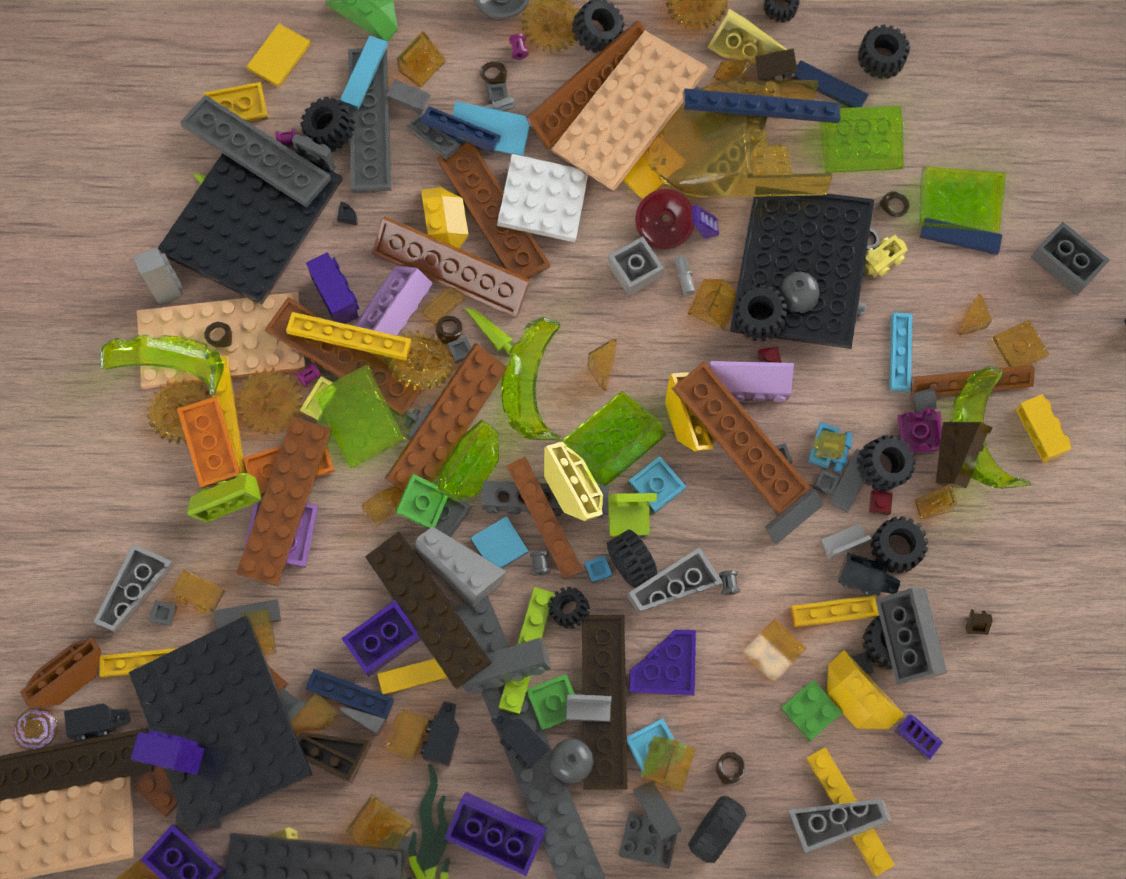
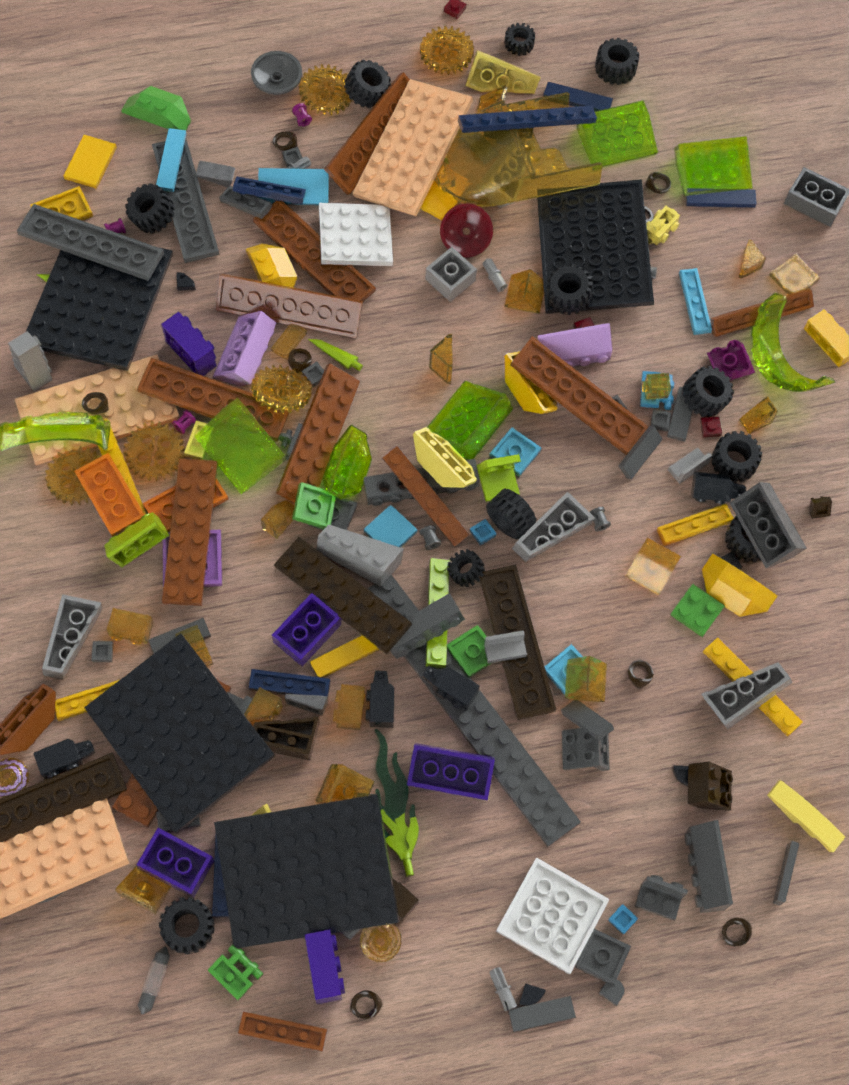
camera: 15 degrees left, 5 degrees down
(168, 752) = (141, 760): dark purple brick -> none
(314, 152) = (144, 232): dark grey plate -> none
(349, 336) = (214, 378): yellow plate -> none
(420, 60) = (217, 141): clear yellow slope -> none
(520, 380) = (374, 388): clear neon green windscreen -> none
(571, 761) = (501, 695): dark grey cylinder -> none
(668, 667) = (564, 600): dark purple plate -> none
(705, 222) = (501, 226): dark purple slope -> none
(717, 829) = (644, 723): black tyre -> none
(776, 64) = (530, 86): dark brown slope -> none
(799, 292) = (599, 265): dark grey cylinder -> none
(910, 719) = (791, 602): dark purple slope -> none
(924, 400) = (725, 335): dark grey tile -> none
(959, 451) = (767, 368): dark brown wedge -> none

